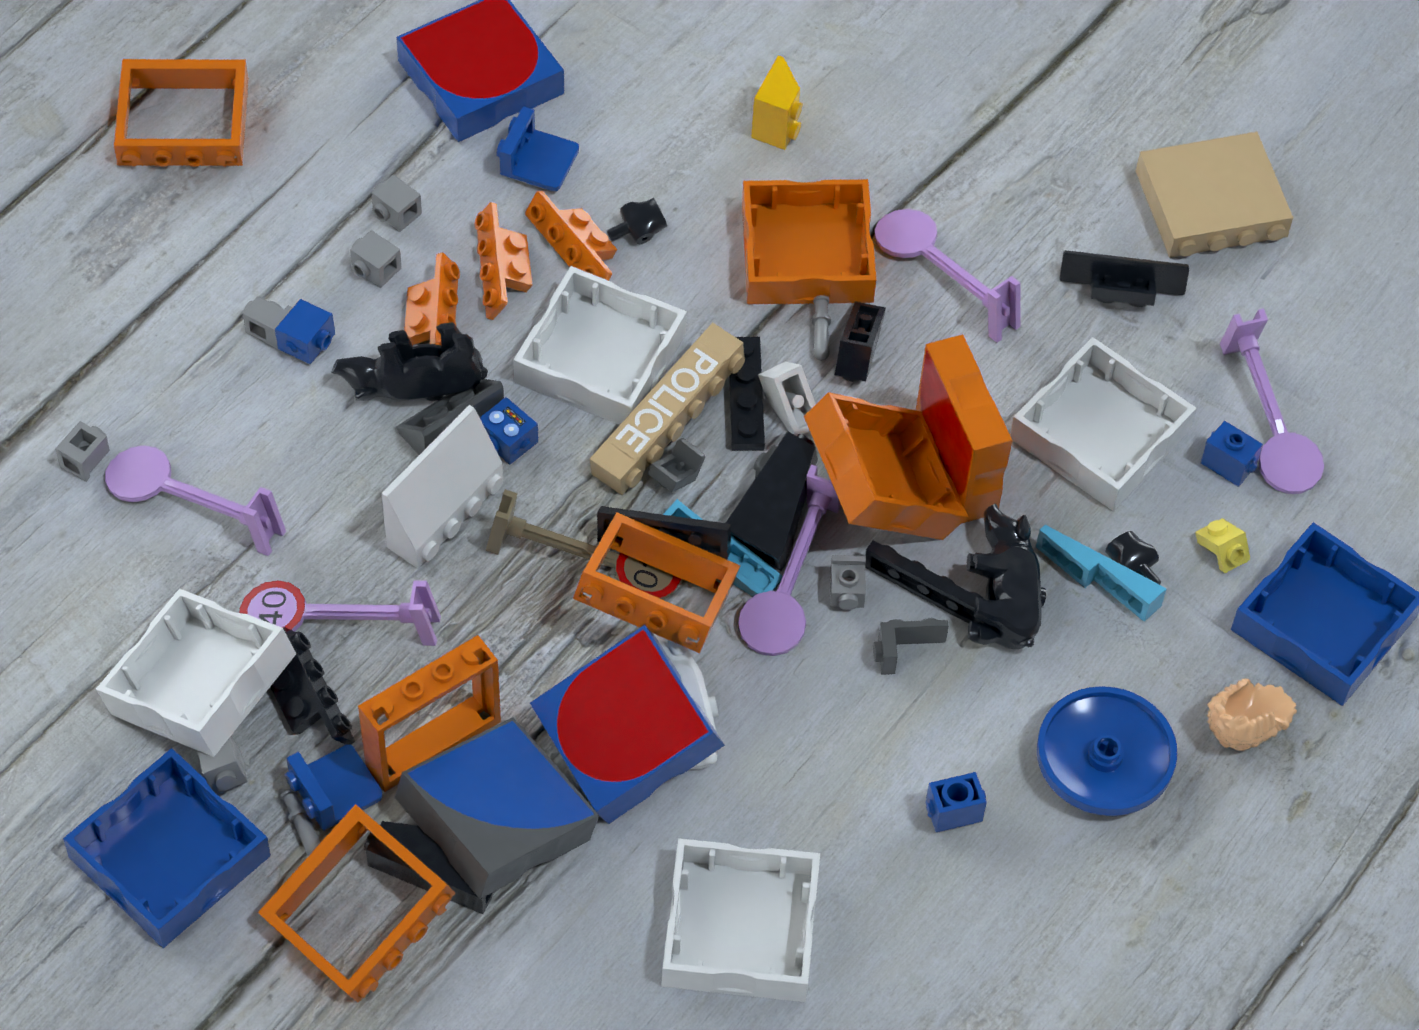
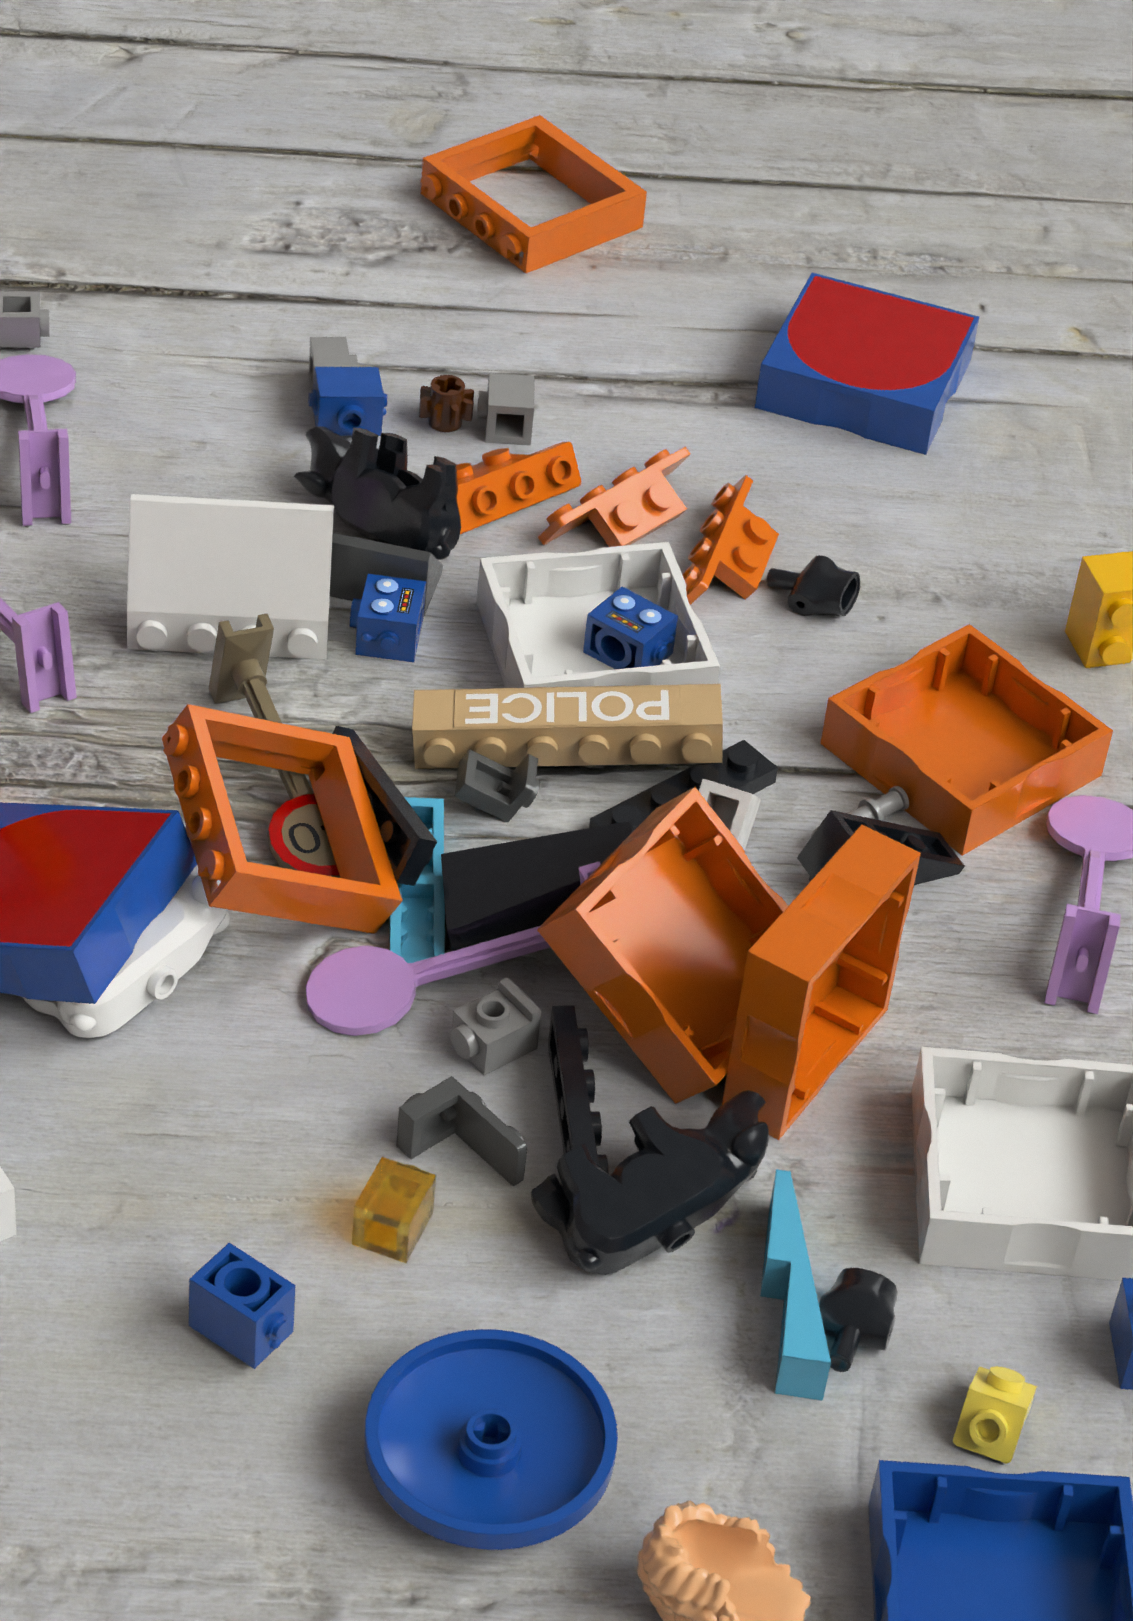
camera: 50 degrees right, 15 degrees down
(345, 285) = (446, 403): none -> reddish brown gear
(396, 203) = (602, 389): light grey brick -> none
(535, 155) = (801, 454): blue bracket -> none
(615, 331) = (629, 631): none -> blue head
(934, 701) = (393, 1209): none -> clear yellow brick

